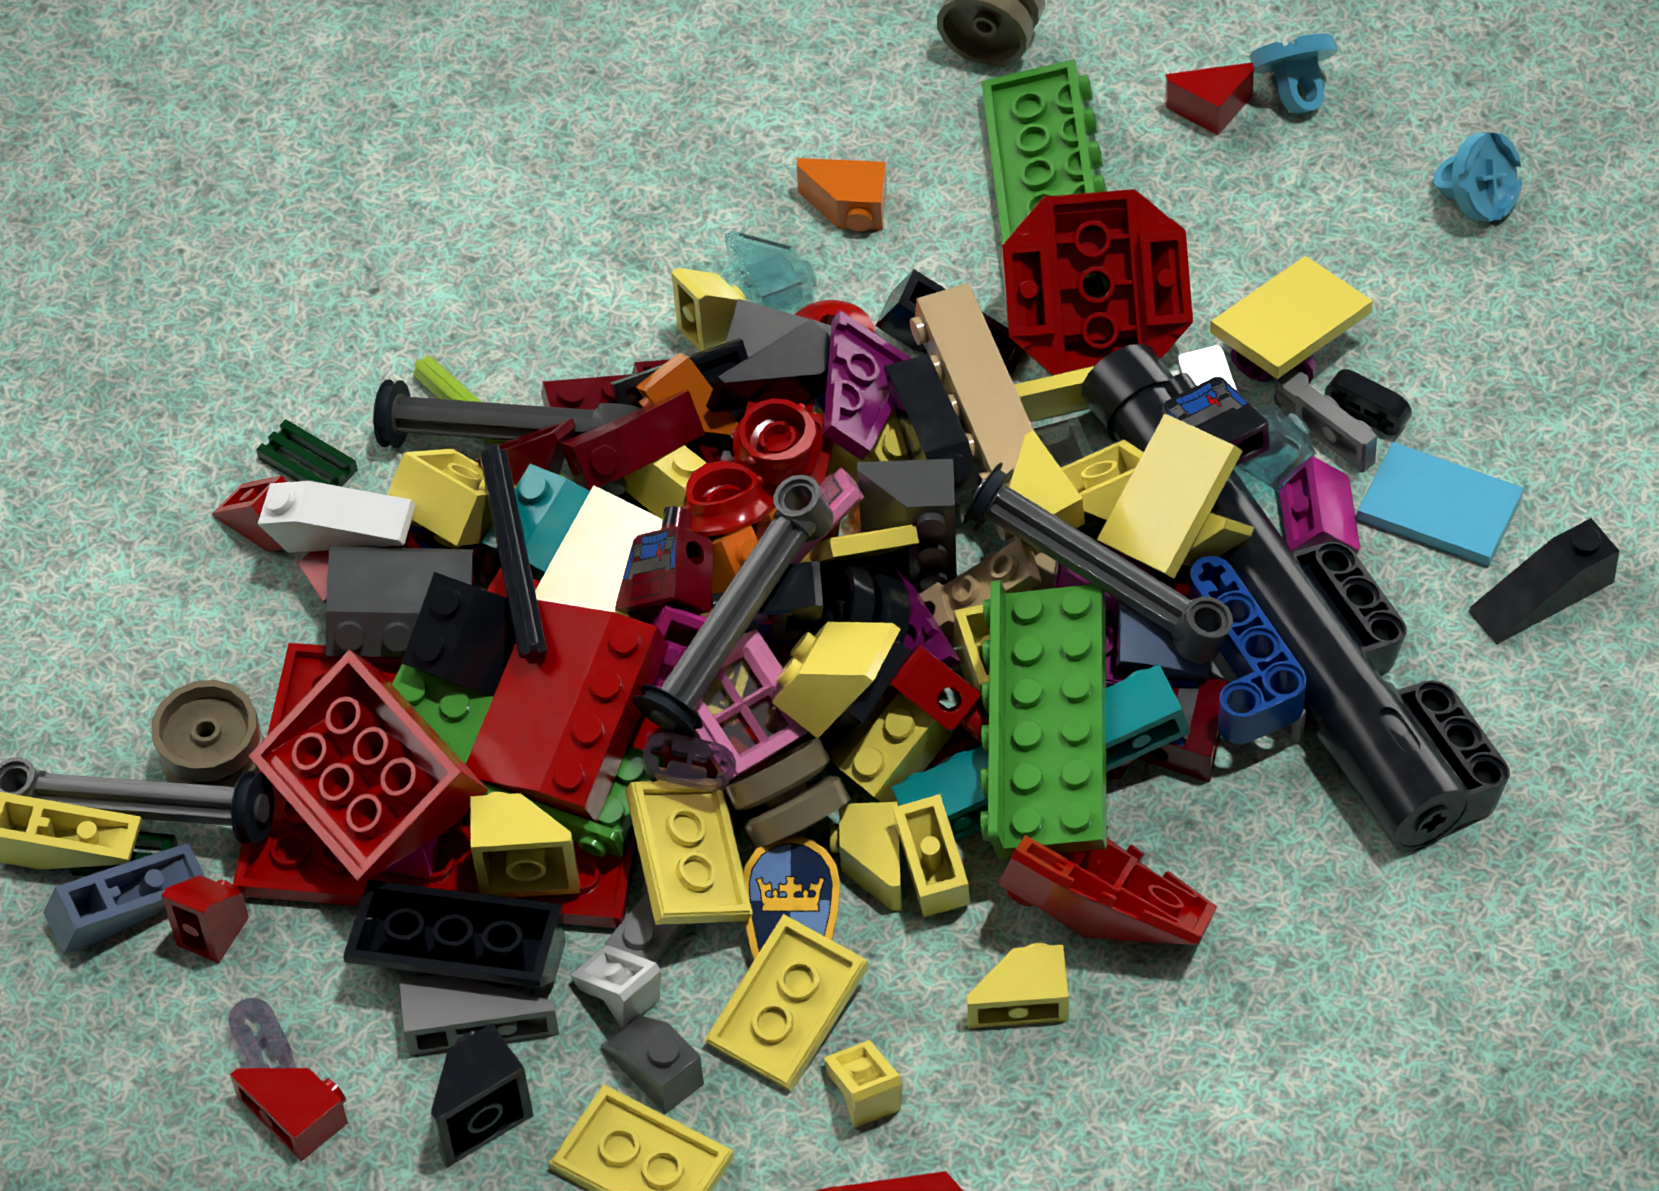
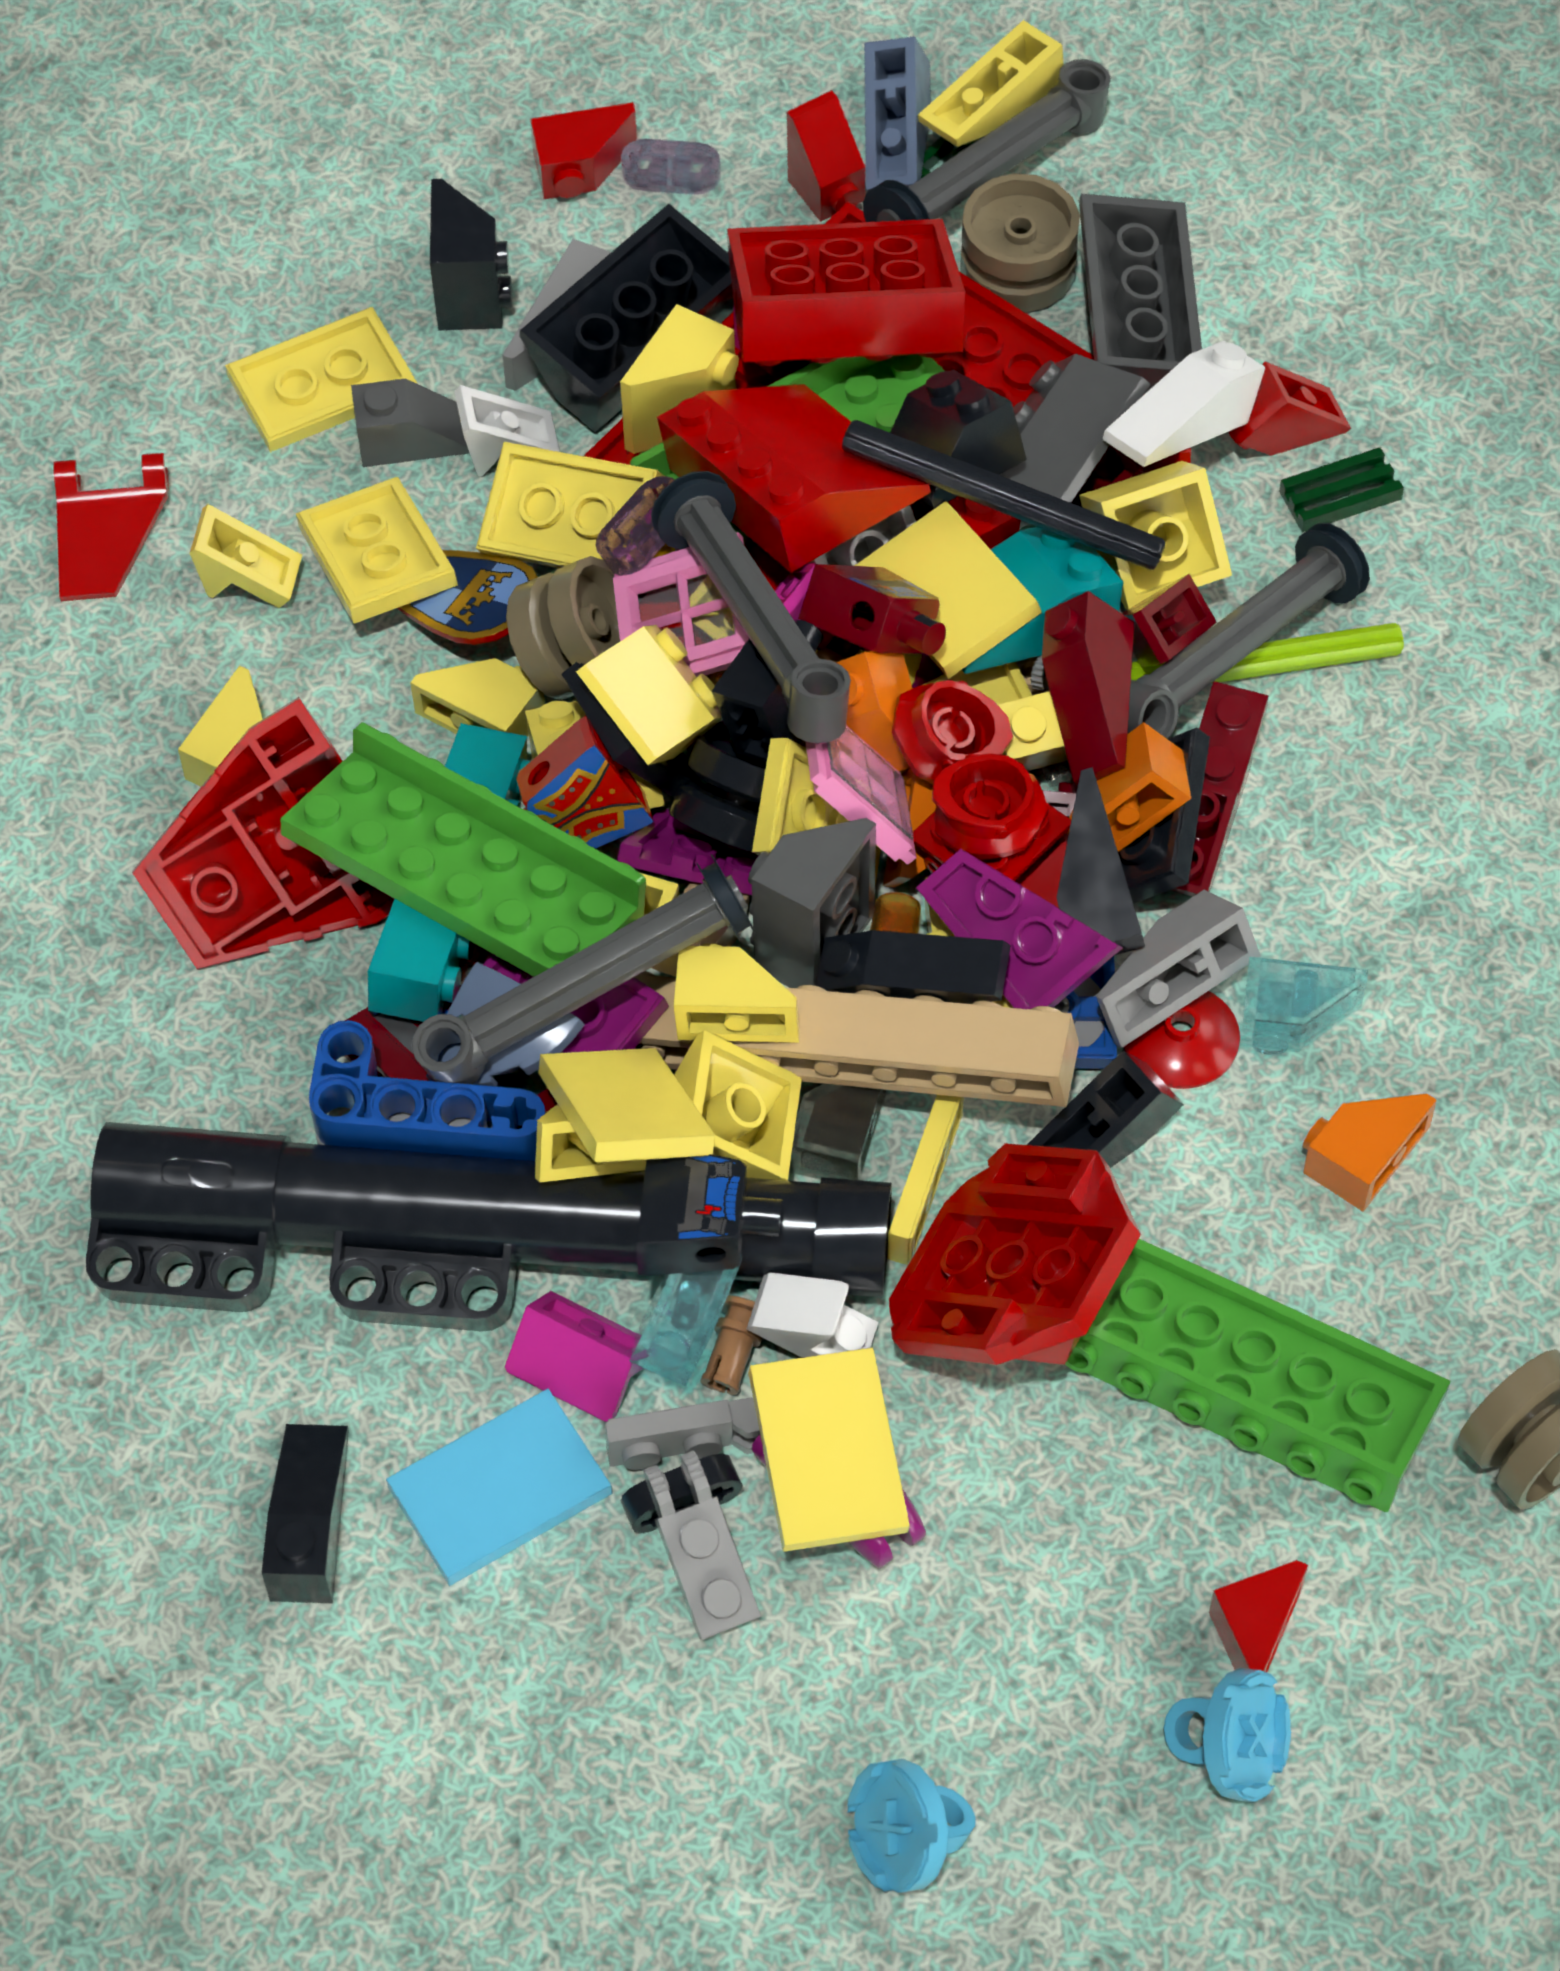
camera: 120 degrees right, 5 degrees up
(217, 622) = (1139, 283): none -> dark grey slope
(704, 306) = (1279, 900): light yellow slope -> none
(932, 856) = (419, 715): light yellow slope -> none
(1401, 361) = (702, 1552): none -> light grey hinge

